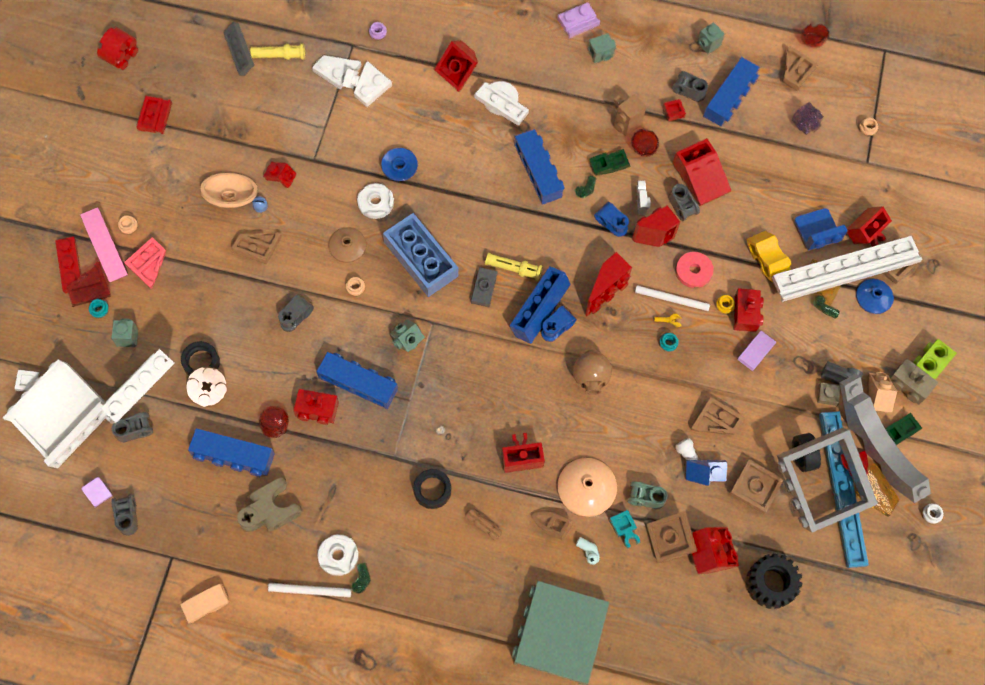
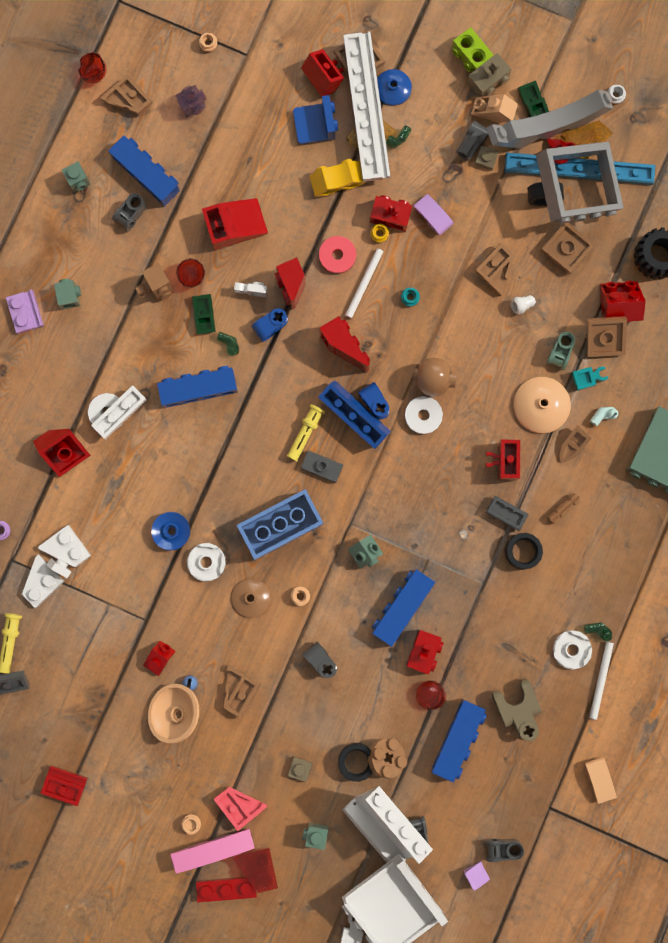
camera: 75 degrees left, 15 degrees up
(96, 304) = (282, 868): teal plate -> none
(188, 311) = (300, 769): none -> dark tan plate
(468, 466) = (507, 513): none -> dark grey plate
(557, 362) = (429, 405): none -> white tile
(671, 319) = (387, 292): yellow hand -> none
(674, 110) = (154, 234): red plate -> none
(685, 205) = (265, 248): dark grey piece -> none
(706, 470) = (546, 291): blue slope -> none

